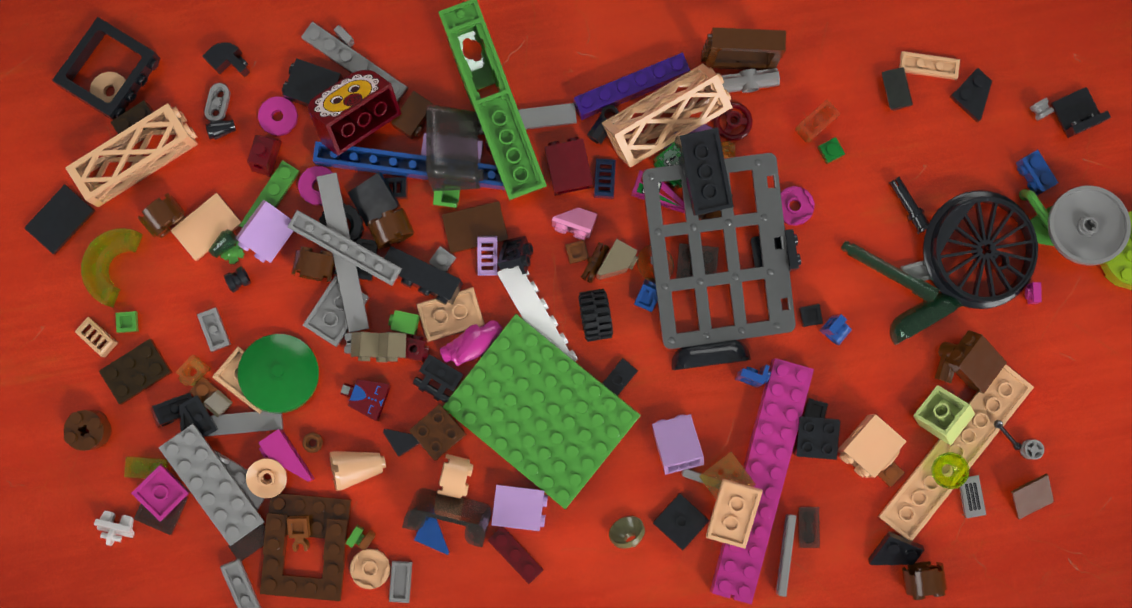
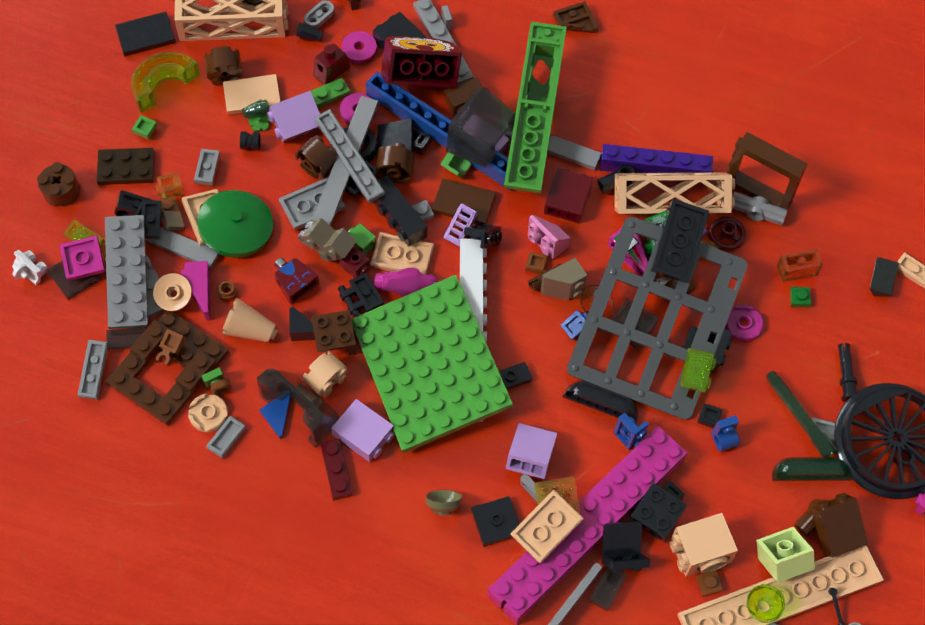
camera: 30 degrees right, 20 degrees down
(107, 348) = (114, 137): light nougat slope -> none
(595, 315) = (522, 311): black tyre -> none
(601, 193) = (589, 233): dark blue slope -> none
(782, 286) = (697, 370): none -> clear neon green brick
(805, 489) = (623, 547): none -> black bracket

